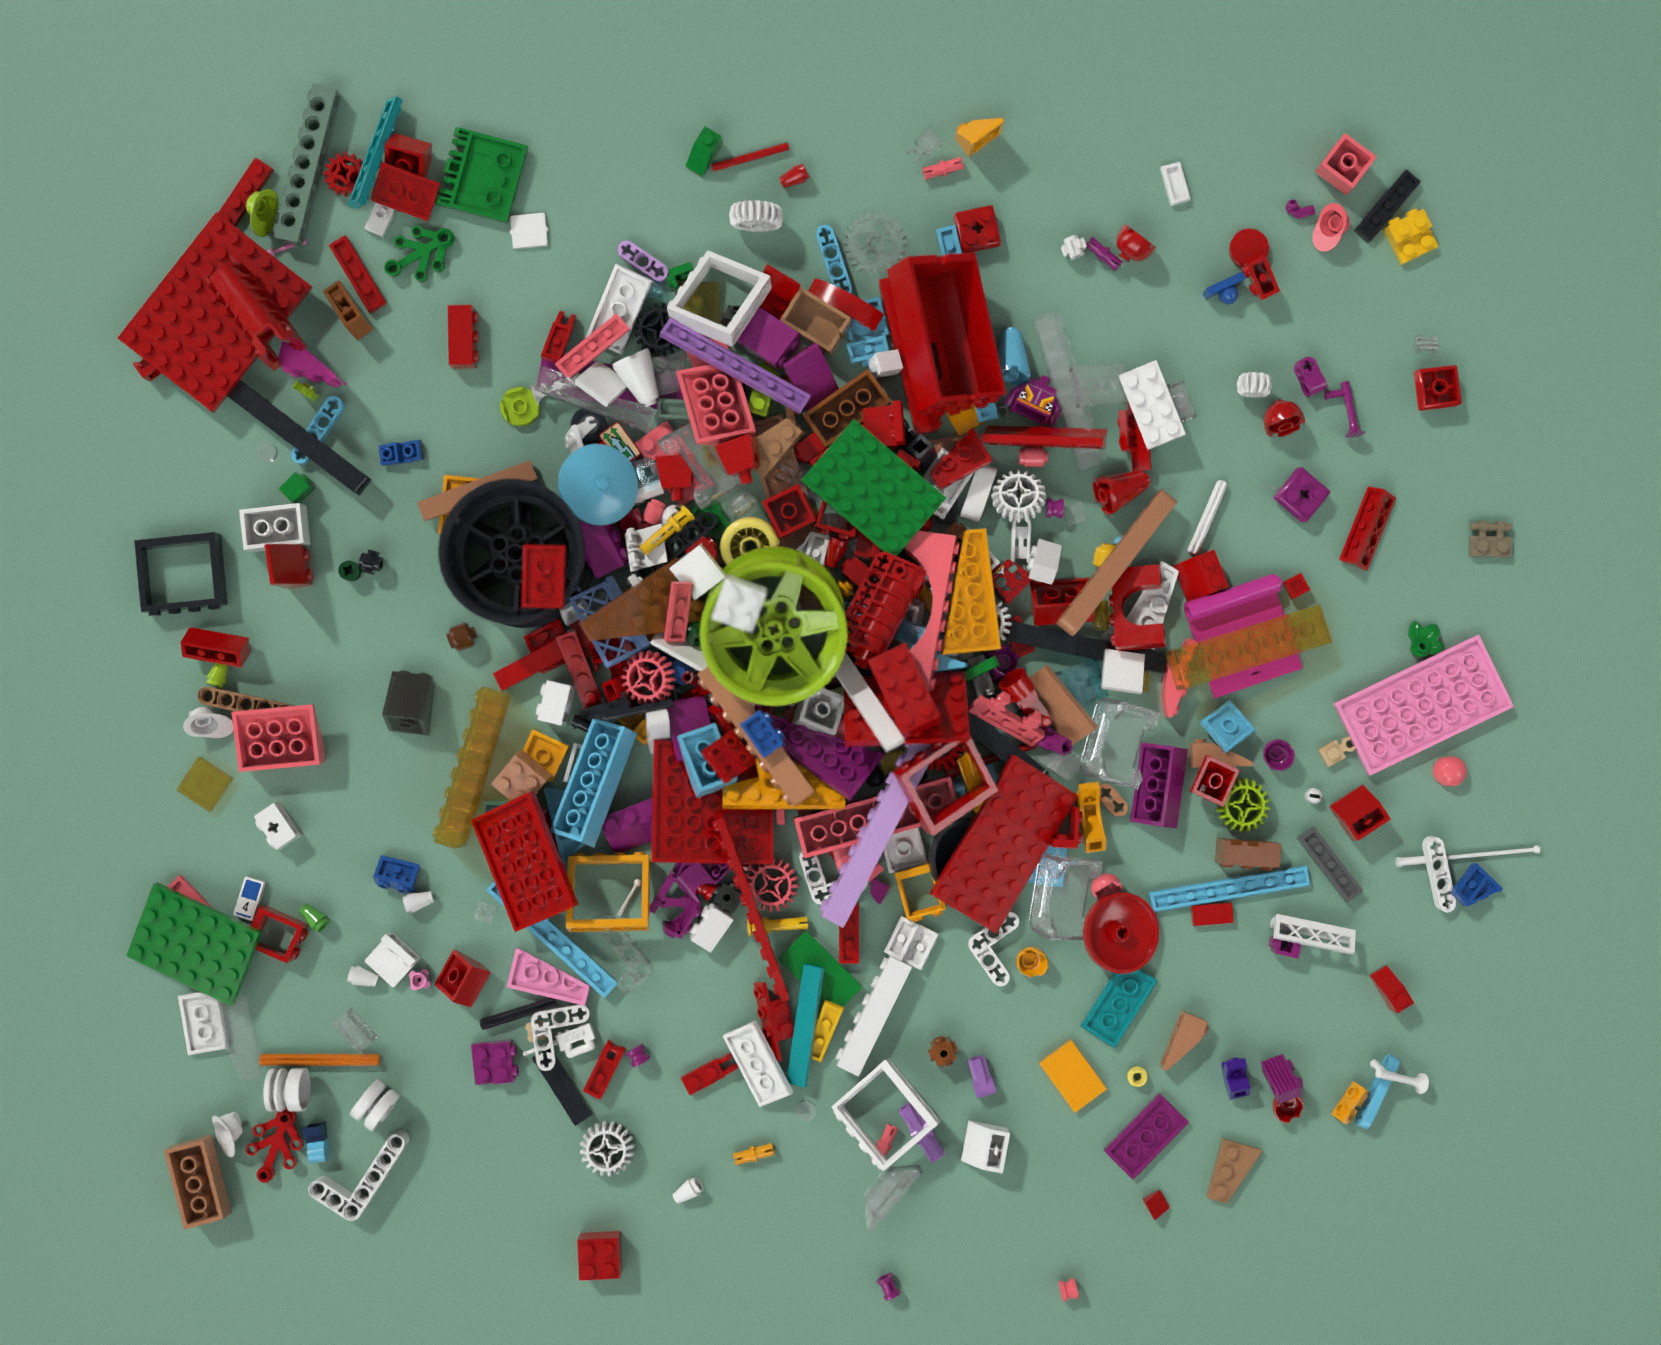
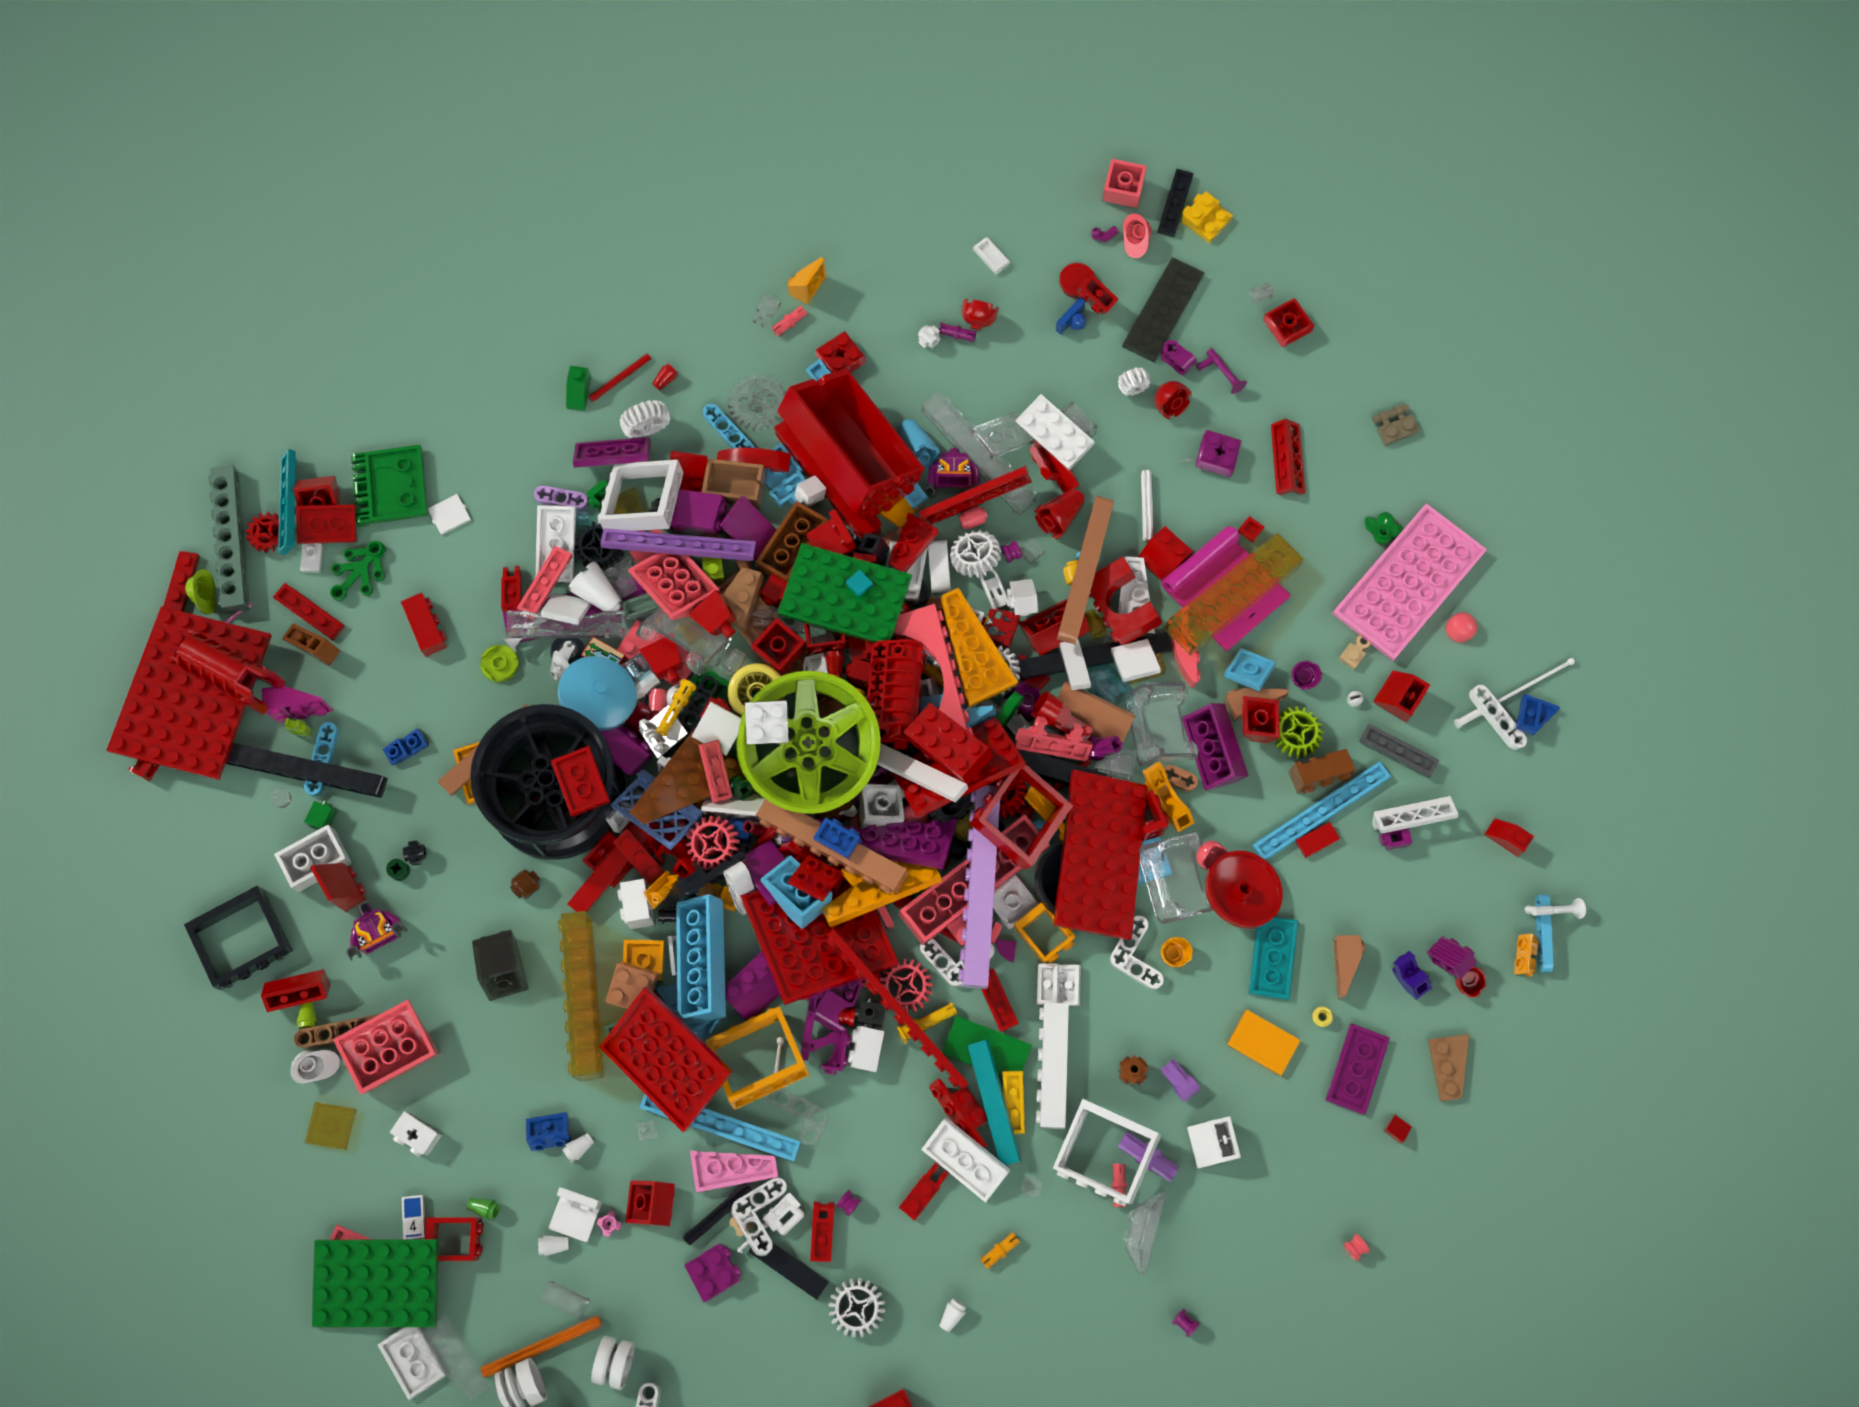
camera: 20 degrees left, 15 degrees down
(306, 620) = (373, 930): none -> torso
(583, 700) = (660, 889): none -> light orange hinge
(710, 236) = (611, 452): none -> magenta tile
(891, 486) = (859, 583): none -> teal tile
(1062, 655) = (1075, 666): none -> white tile
(1320, 317) = (1163, 309): none -> clear smoke plate

